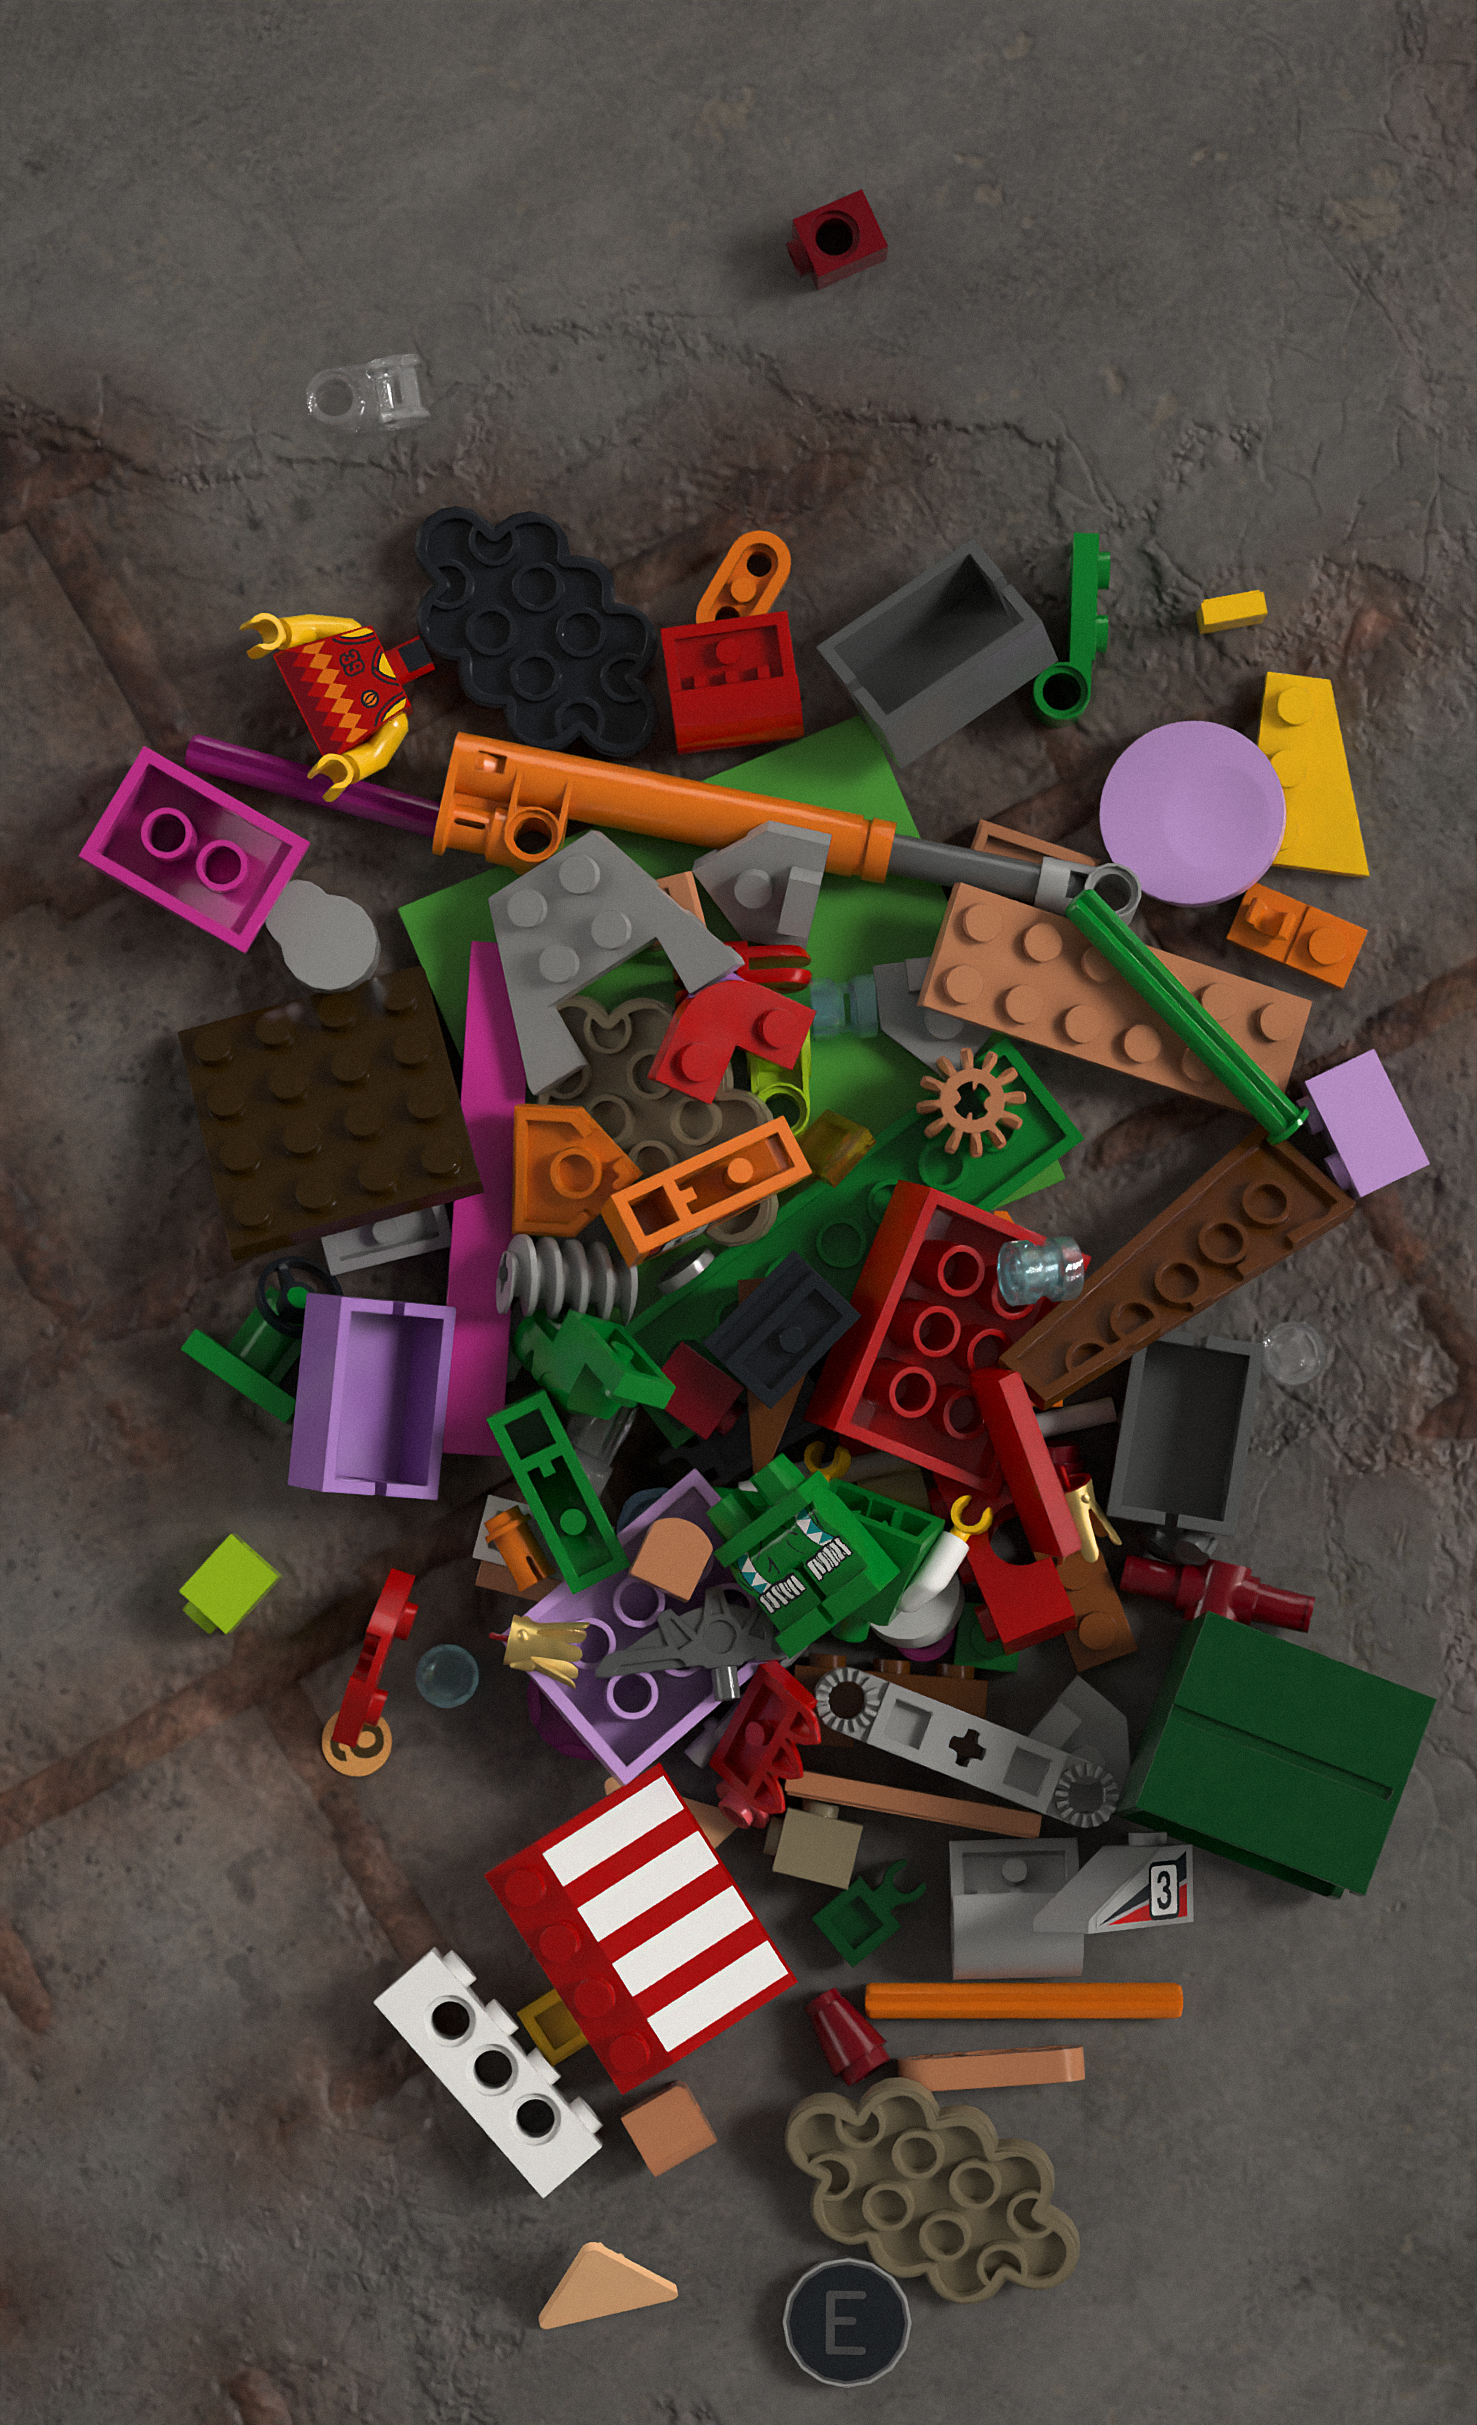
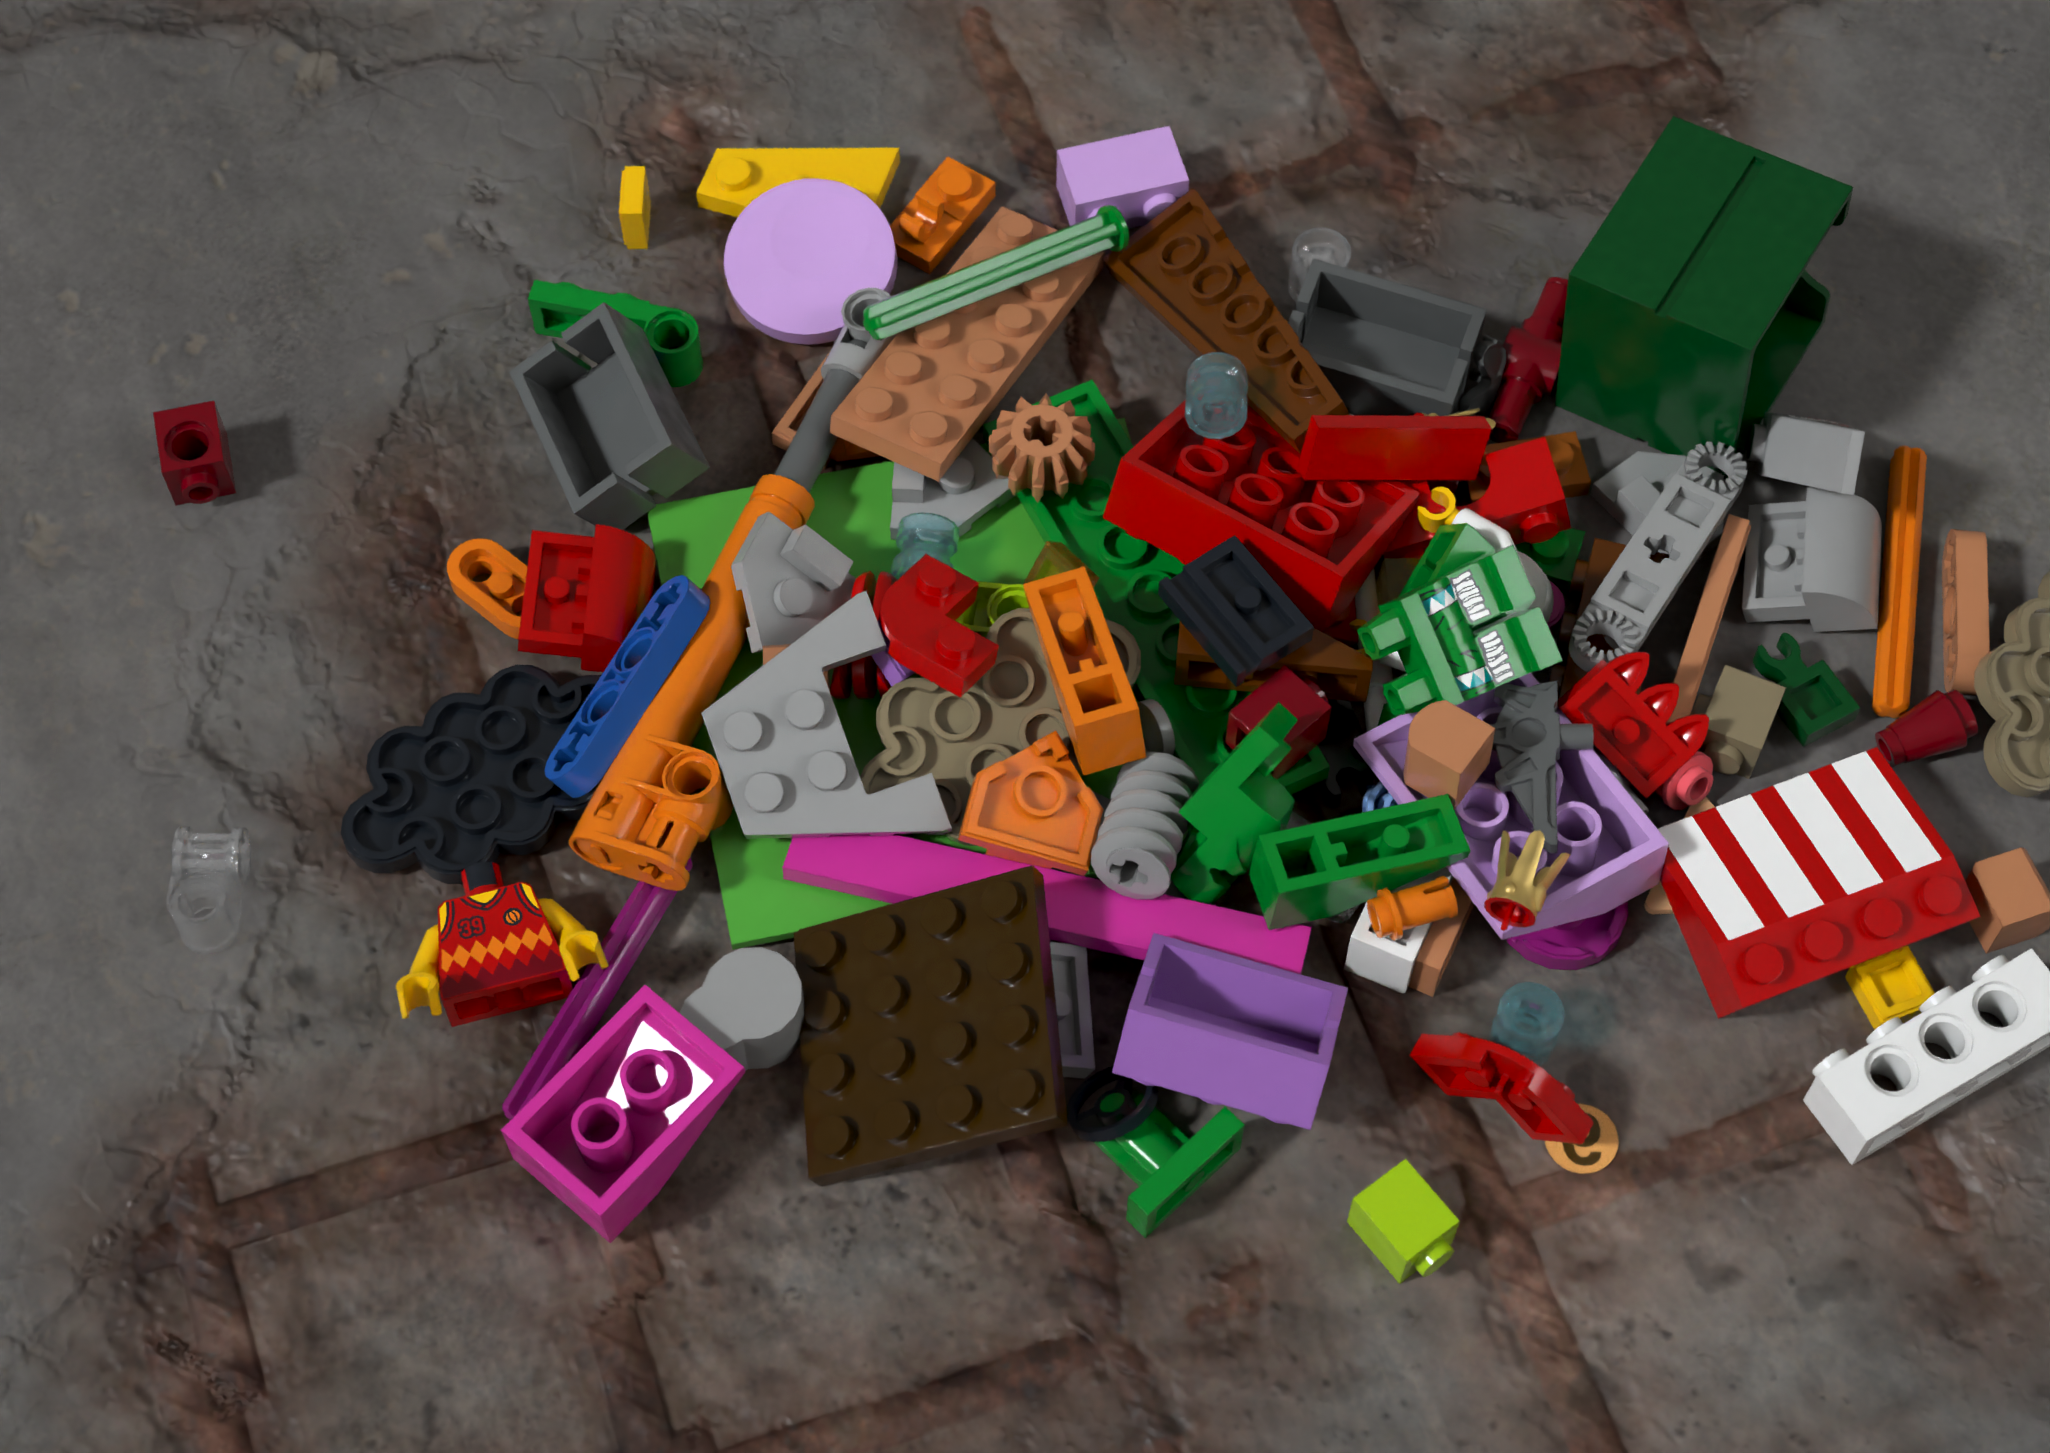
camera: 75 degrees left, 25 degrees down
(625, 755) = (627, 686): none -> blue beam

